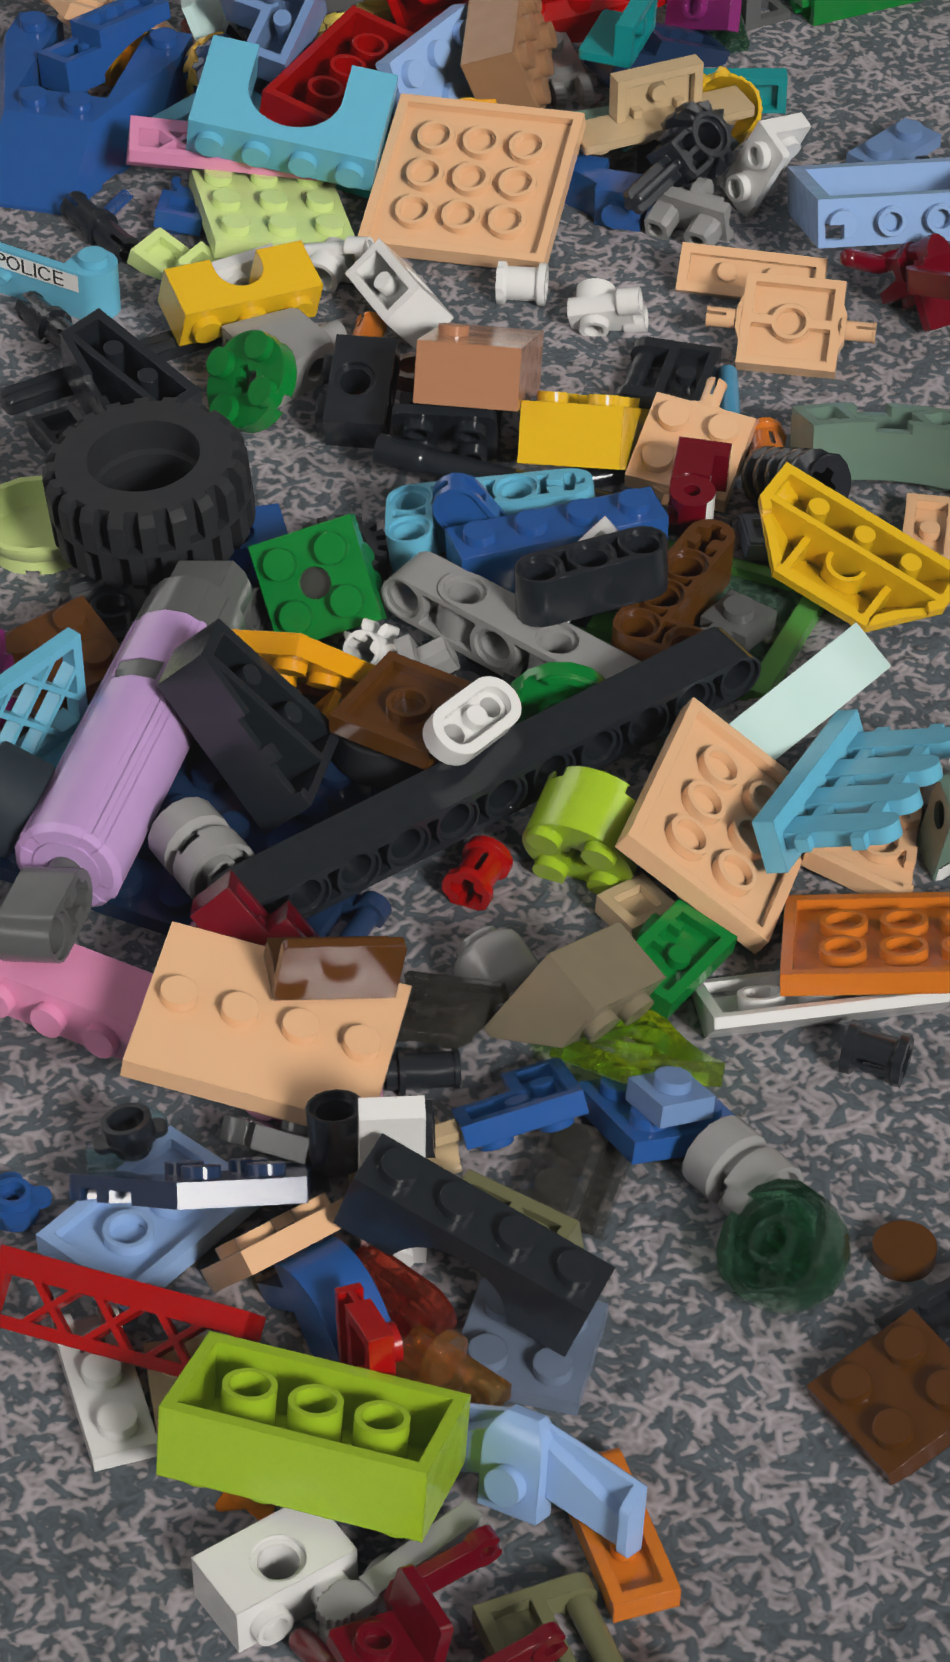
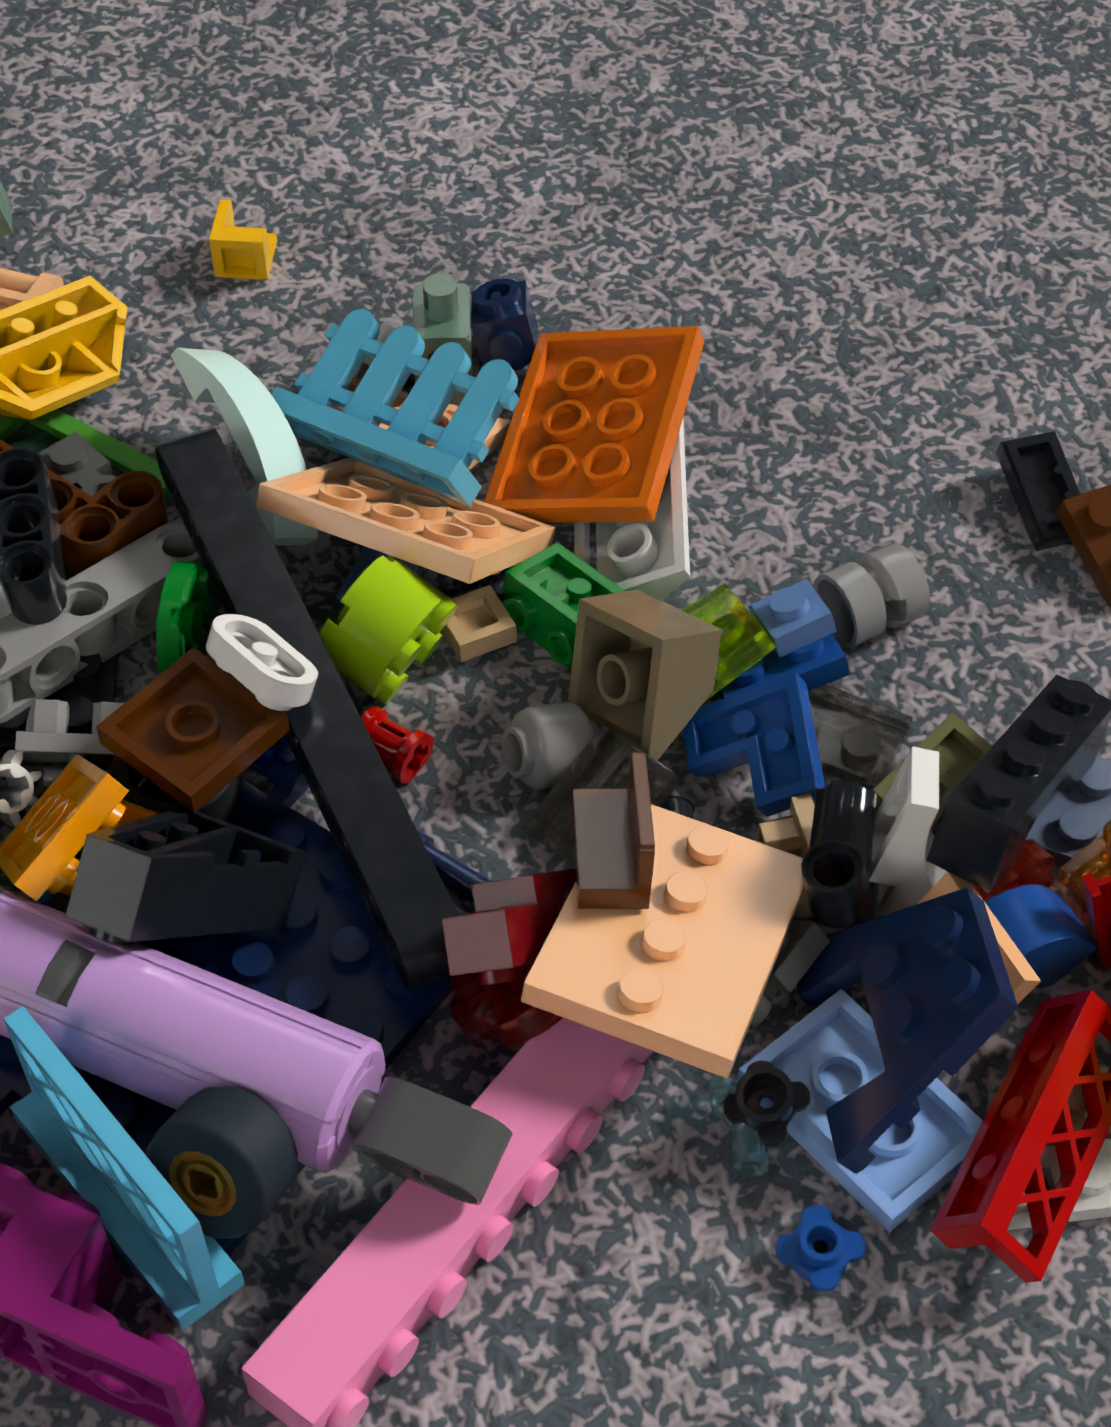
camera: 80 degrees left, 10 degrees up
(195, 843) = (316, 980): light grey wheel -> none
(784, 1248) = (991, 571): clear green cylinder -> none
(876, 1053) = (719, 474): black bush -> none
(904, 1251) = (953, 511): reddish brown tile -> none

